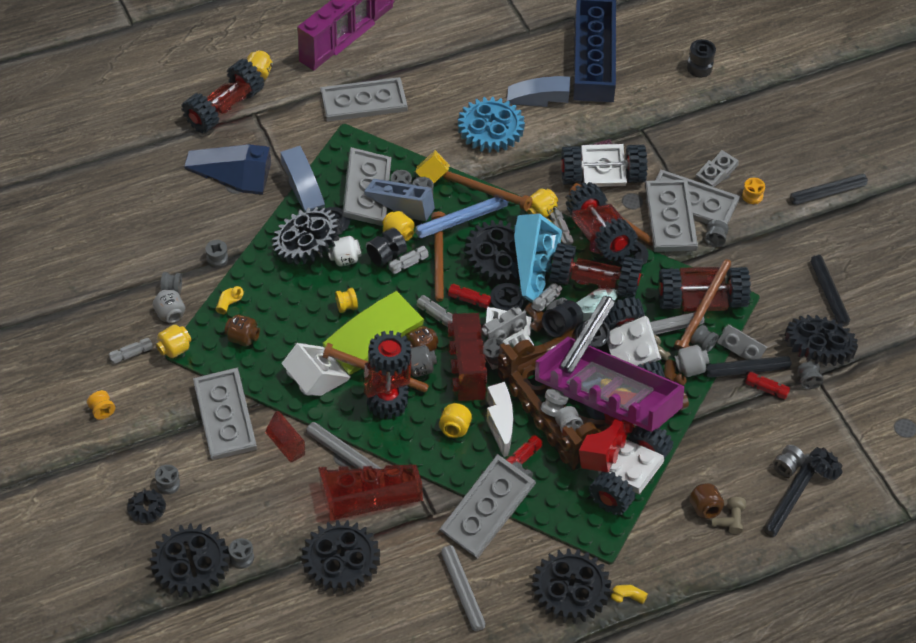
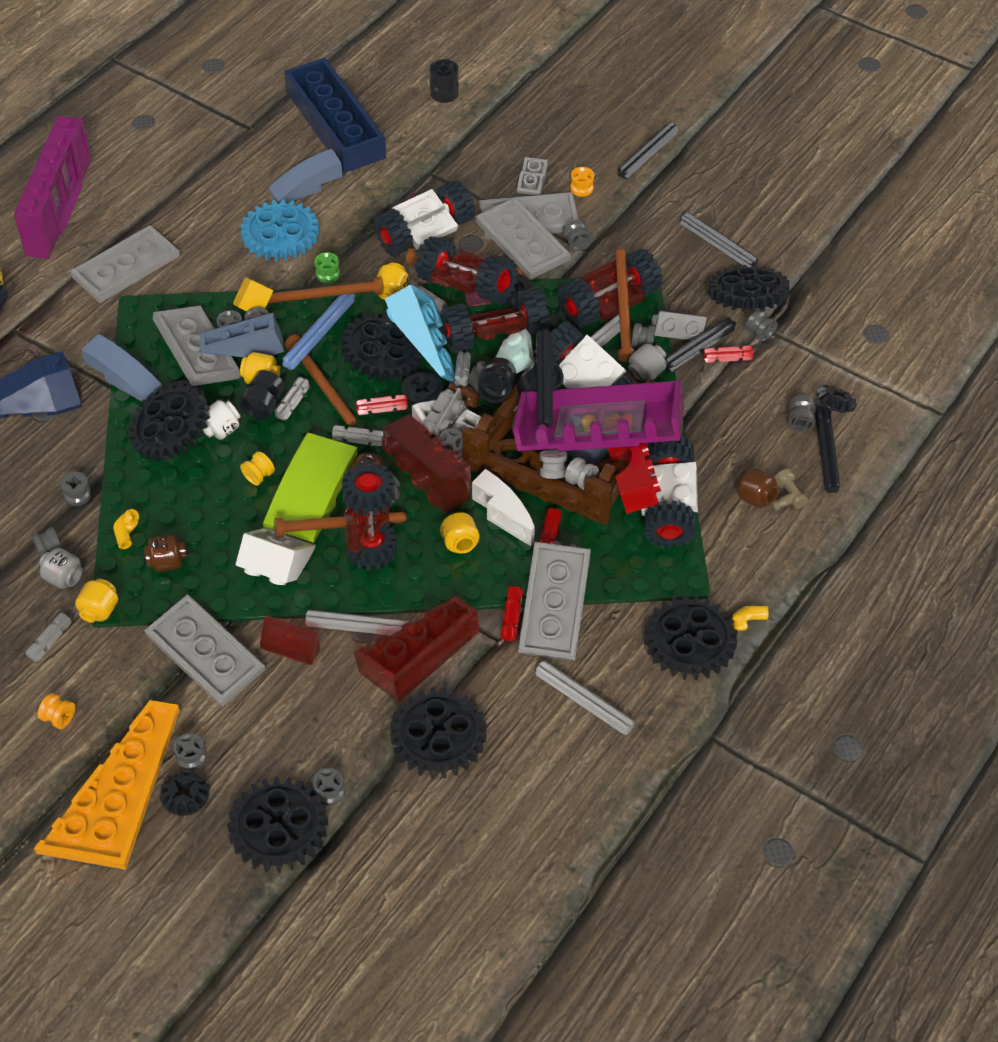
camera: 30 degrees left, 0 degrees up
(98, 485) = (113, 801): none -> light orange wing
(453, 499) = (511, 613): none -> red axle
(506, 170) = (327, 267): none -> bright green wheel

